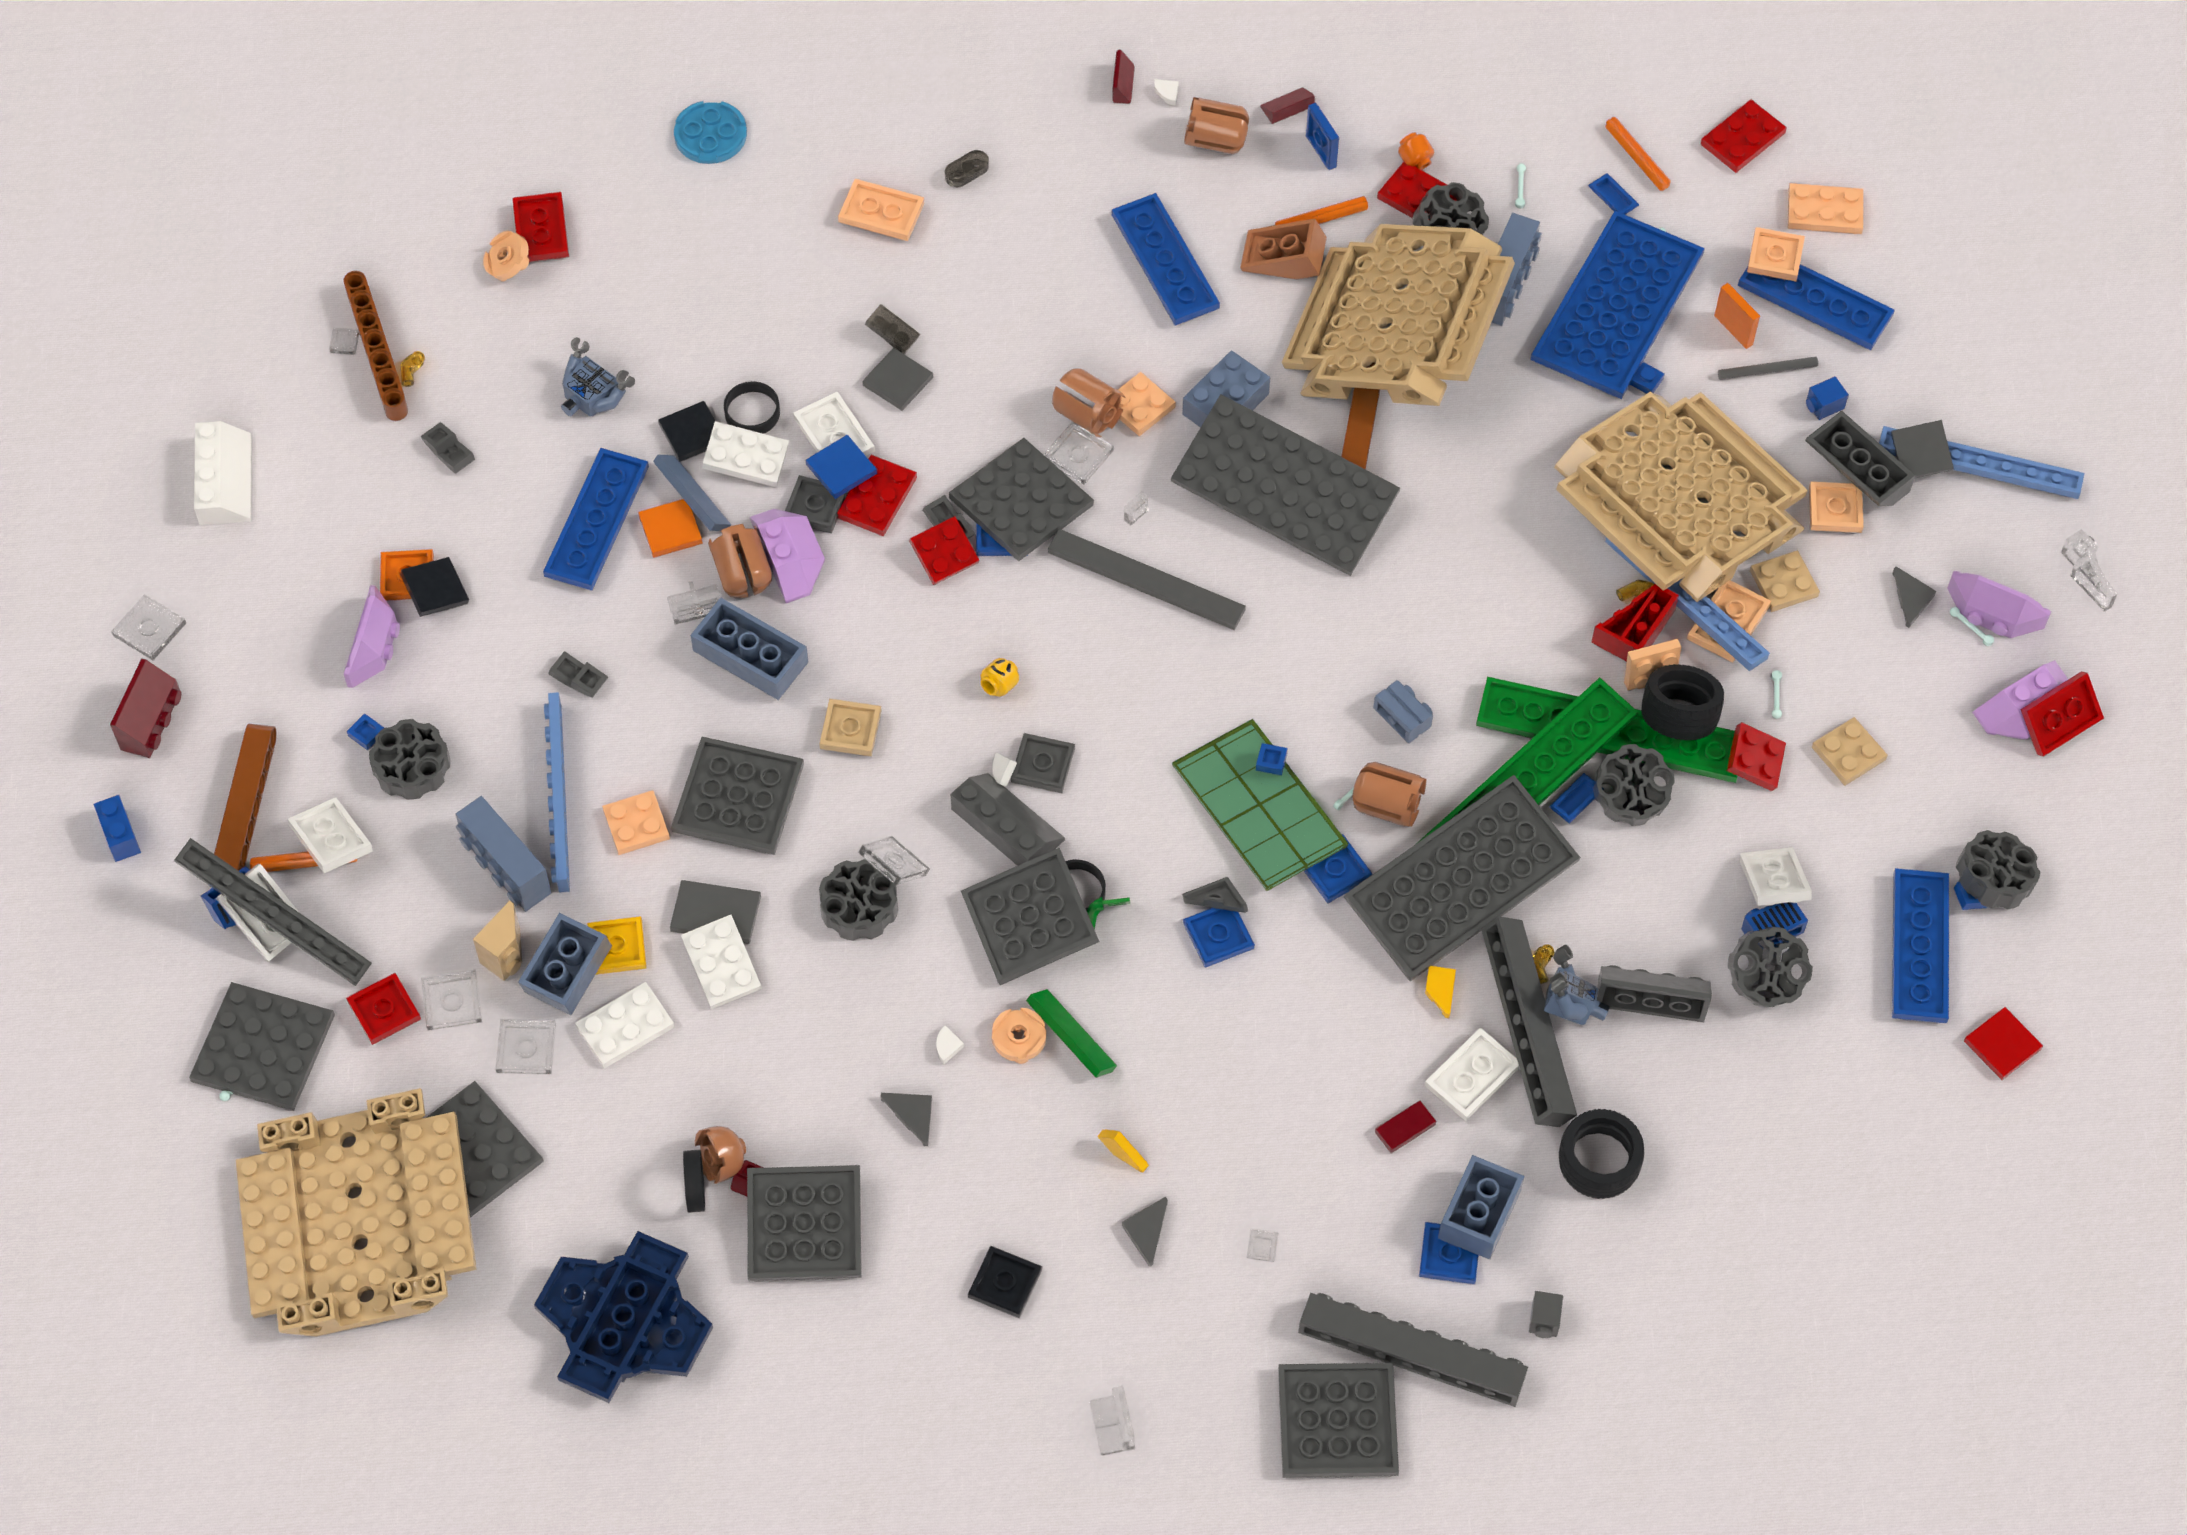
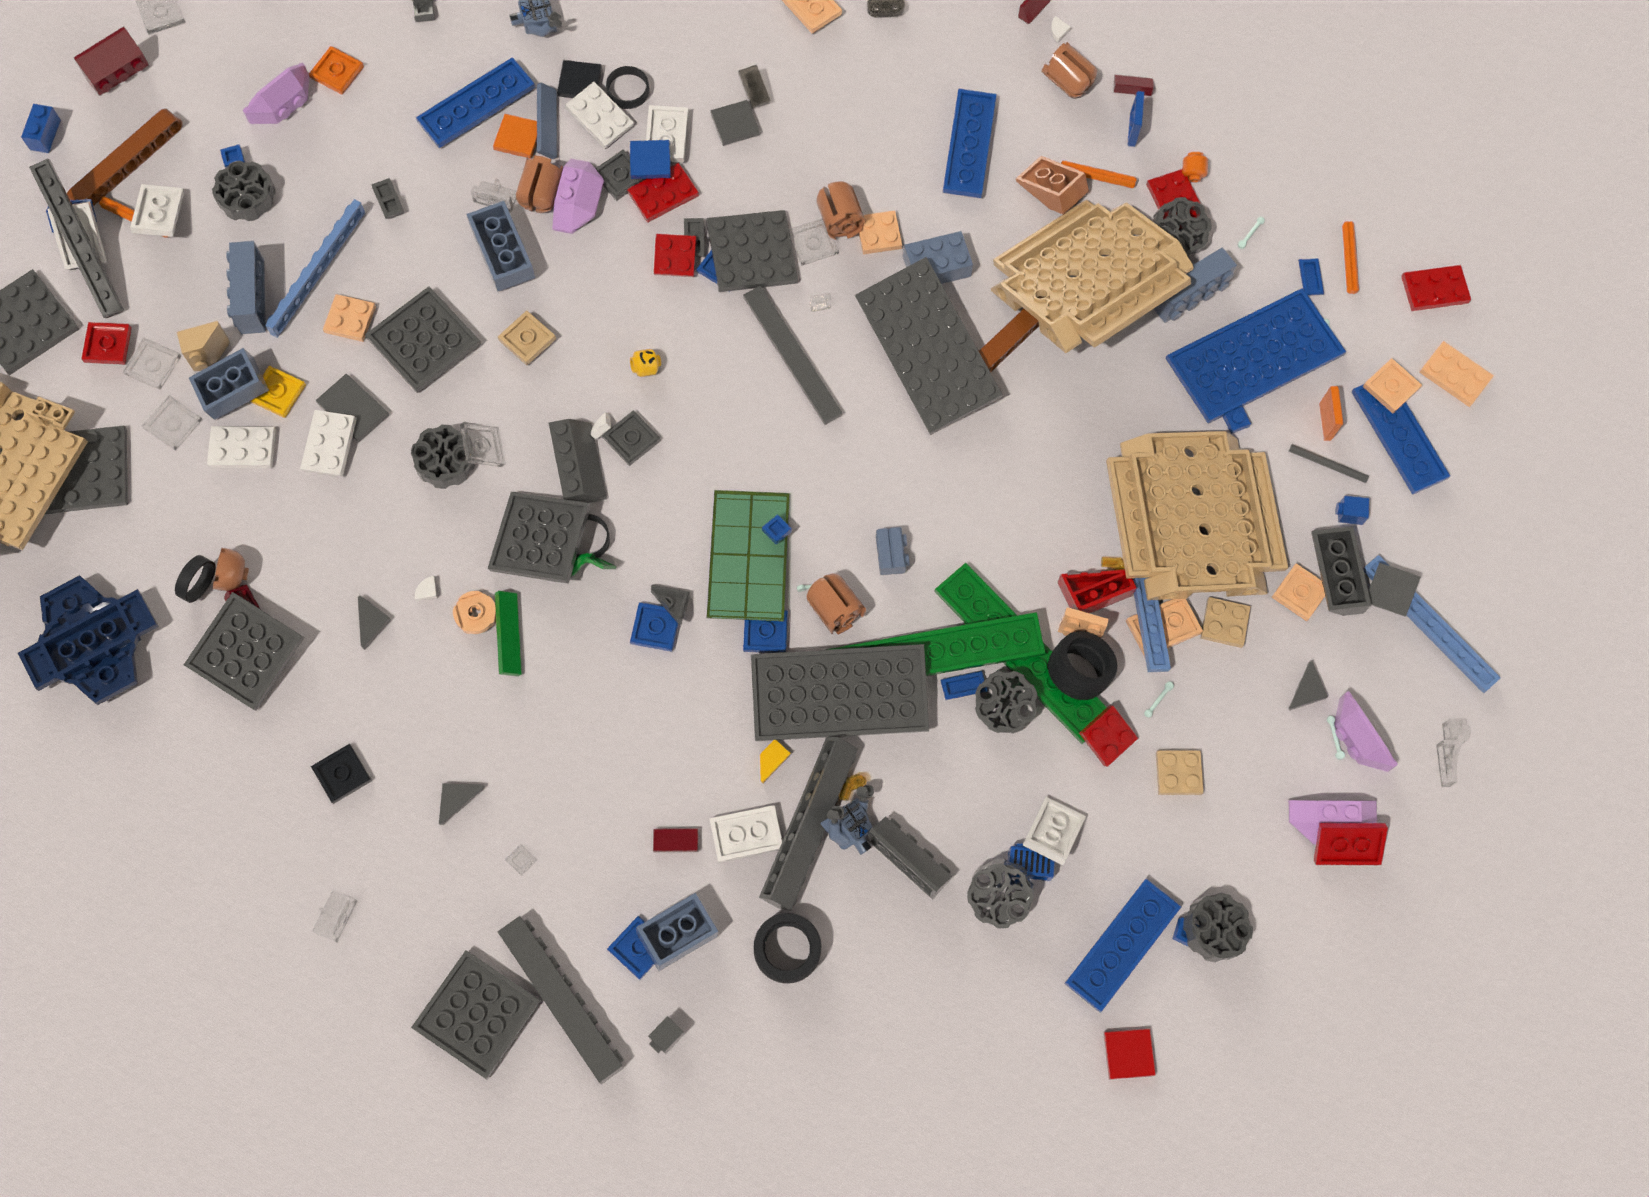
camera: 30 degrees right, 10 degrees up
(434, 586) = (343, 87): black tile -> none
(1122, 1148) = (480, 734): yellow tile -> none

